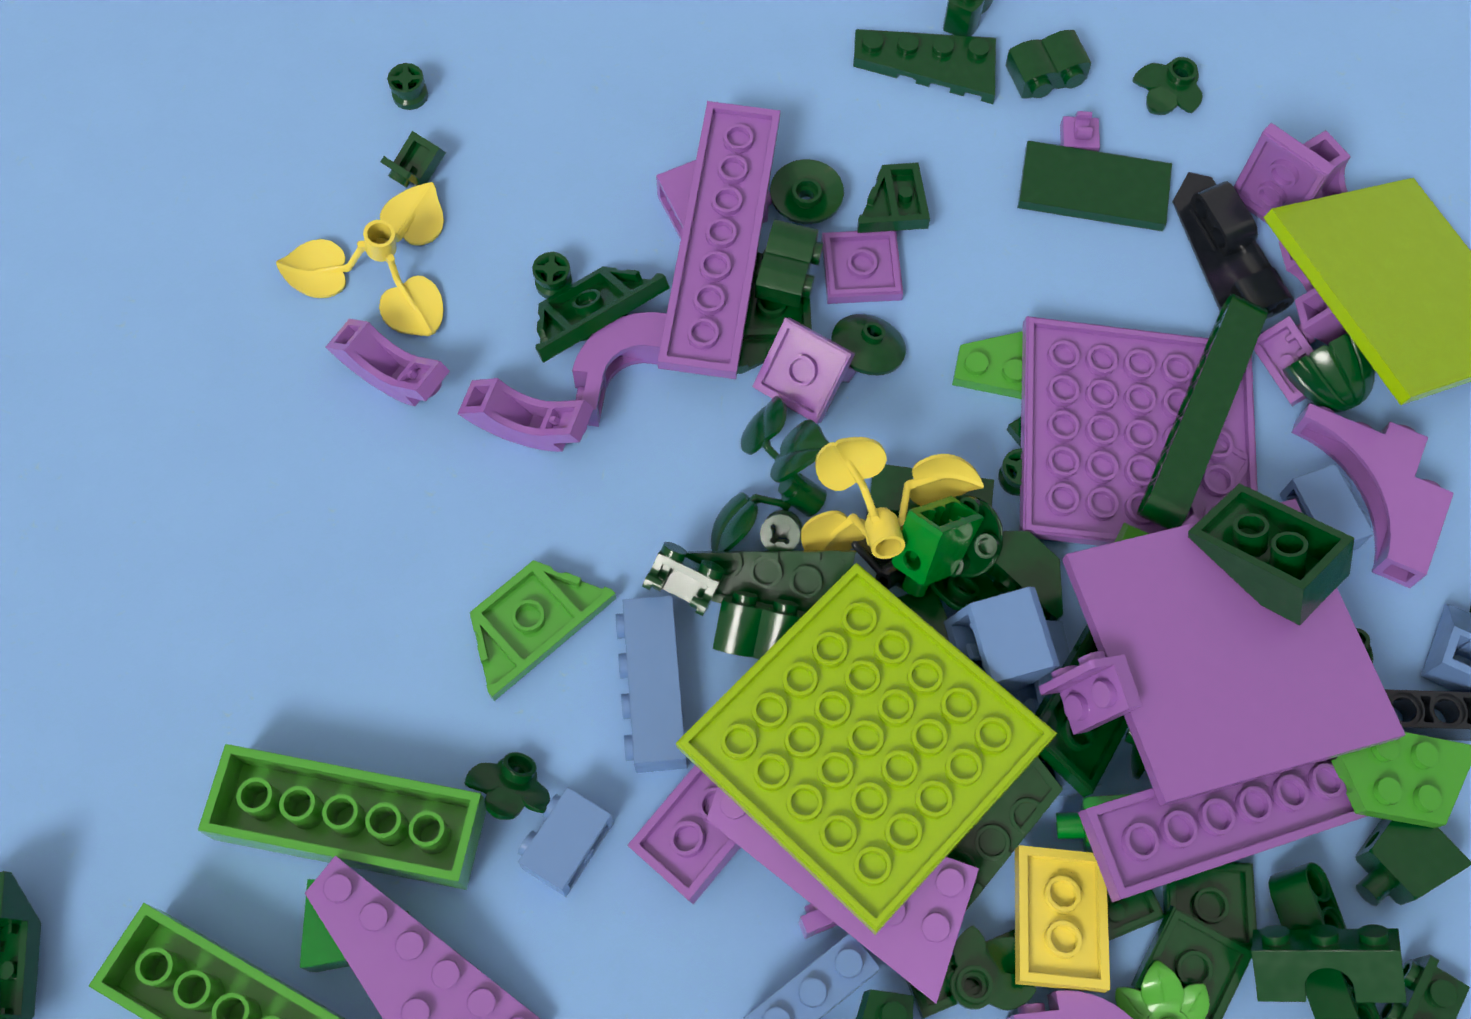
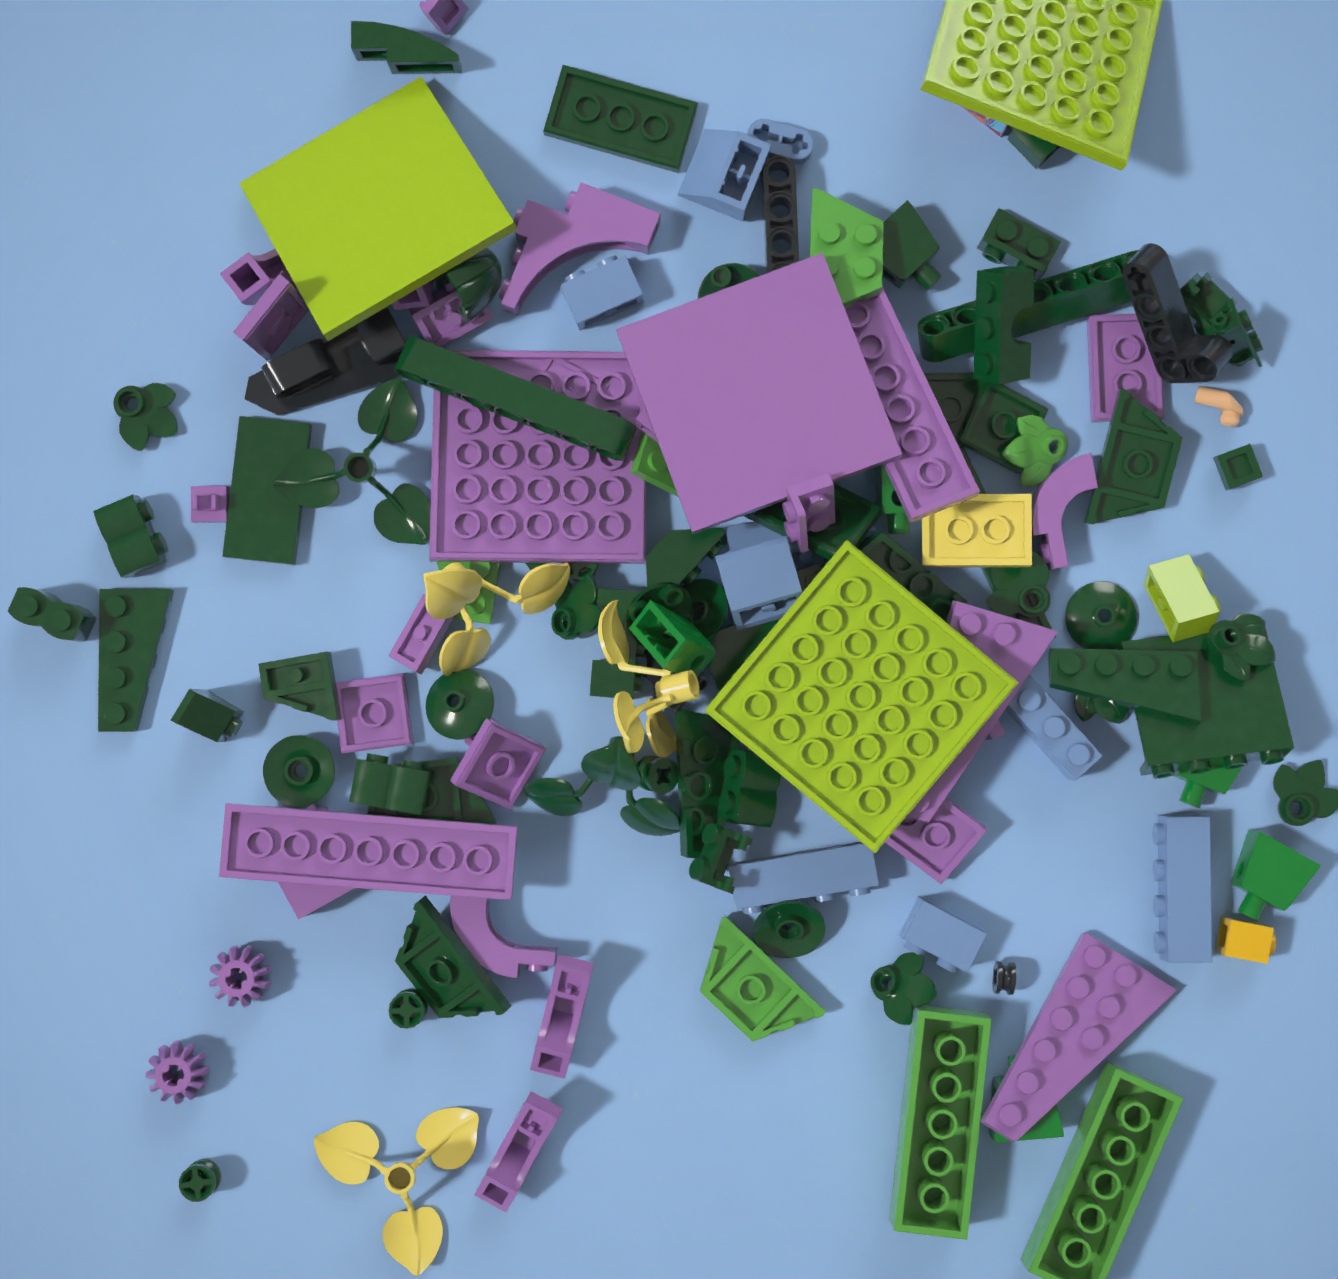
camera: 90 degrees left, 20 degrees up
(415, 161) = (291, 1160): dark green bracket -> none
(505, 914) = (1004, 978): none -> black bush
(516, 72) = (169, 1083): none -> medium lavender gear
(592, 662) = (789, 929): none -> dark green dish
(604, 129) = (229, 986): none -> medium lavender gear
(869, 110) = (208, 715): none -> dark green slope
(944, 312) = (419, 638): none -> medium lavender plate
(980, 458) = (576, 609): none -> dark green plate
(1000, 303) = (455, 586): none -> light yellow plant
(1112, 218) = (311, 479): none -> dark green plant
(1274, 552) = (676, 356): dark green slope -> none

